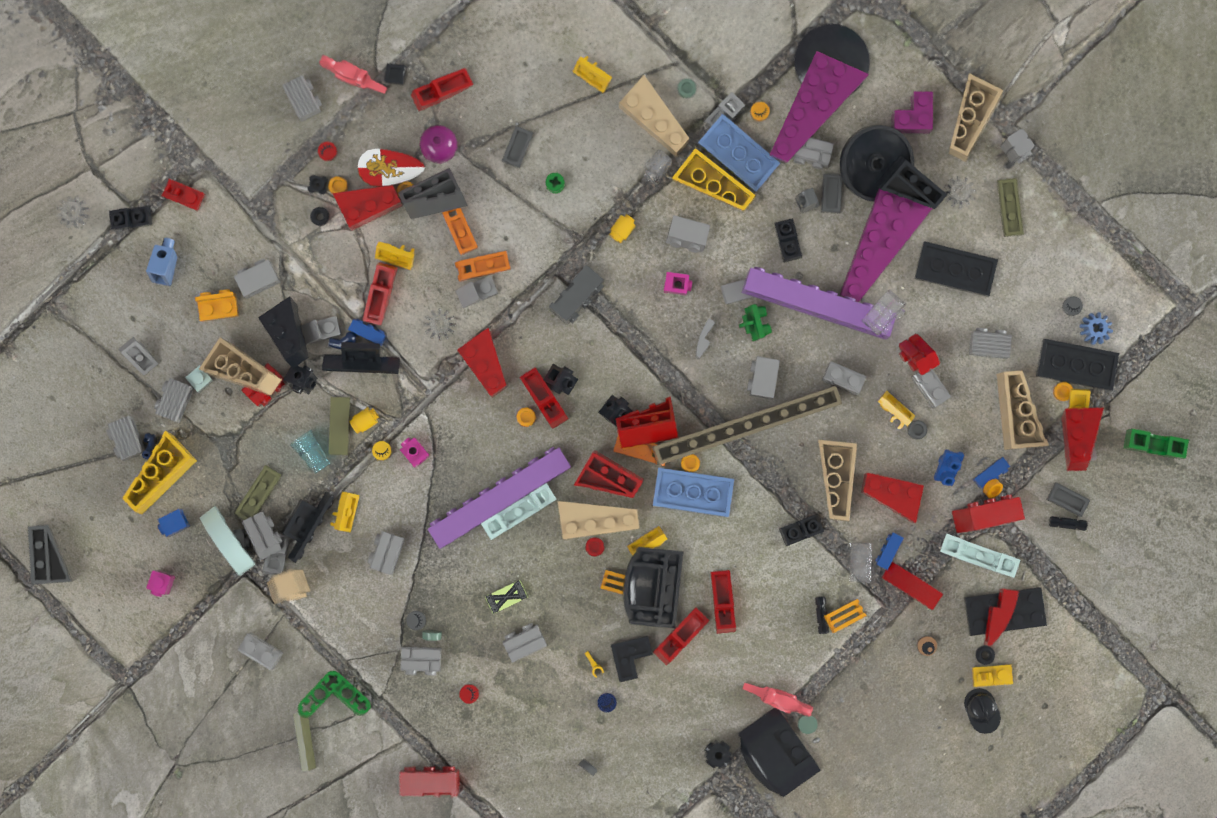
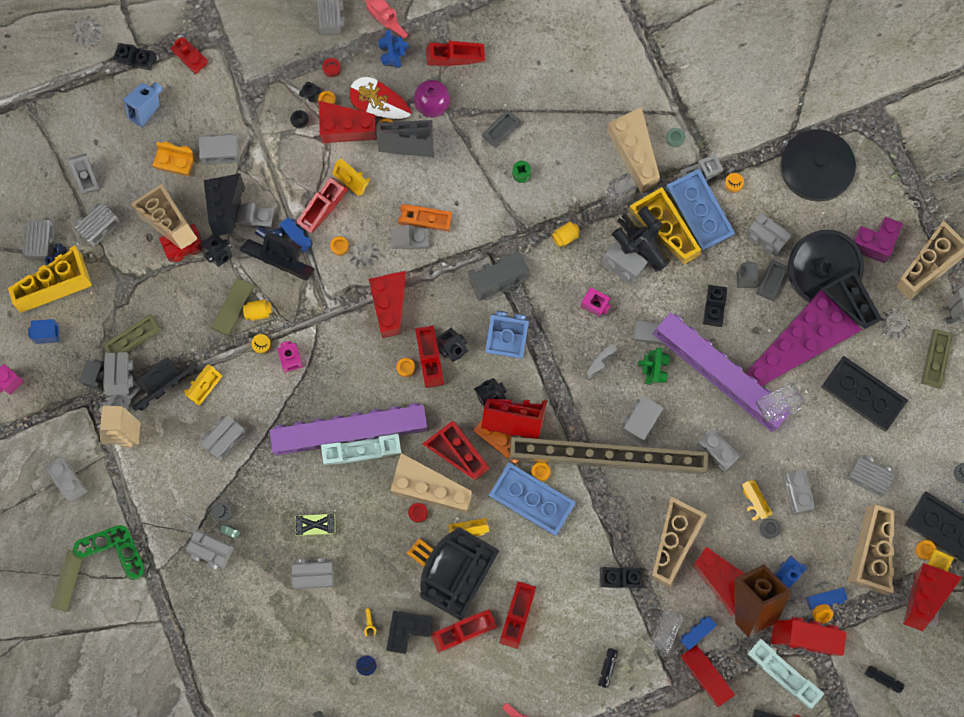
camera: 25 degrees right, 10 degrees down
(199, 379) = (127, 216): light aqua plate -> none
(226, 541) = (81, 366): light aqua slope -> none
(310, 451) = (196, 317): clear light blue plant -> none
(381, 107) = (395, 49): none -> blue hips
(395, 74) = (420, 26): black tile -> none
(413, 326) = (339, 245): none -> light orange tile
(429, 781) = (165, 669): wedge -> none
(460, 231) = (418, 179): orange plate -> none
(469, 693) = (240, 601): red tile -> none
(592, 74) = (594, 91): yellow plate -> none
(607, 348) = (507, 334): none -> medium blue plate
(696, 206) = (642, 238): none -> black wheel
(820, 95) = (794, 187): magenta wing -> none
(858, 608) = (645, 676): light orange tile -> none
(918, 354) = (798, 456): red brick -> none
(932, 501) = (759, 600): none -> reddish brown slope
(1068, 499) = (893, 656): dark grey tile -> none

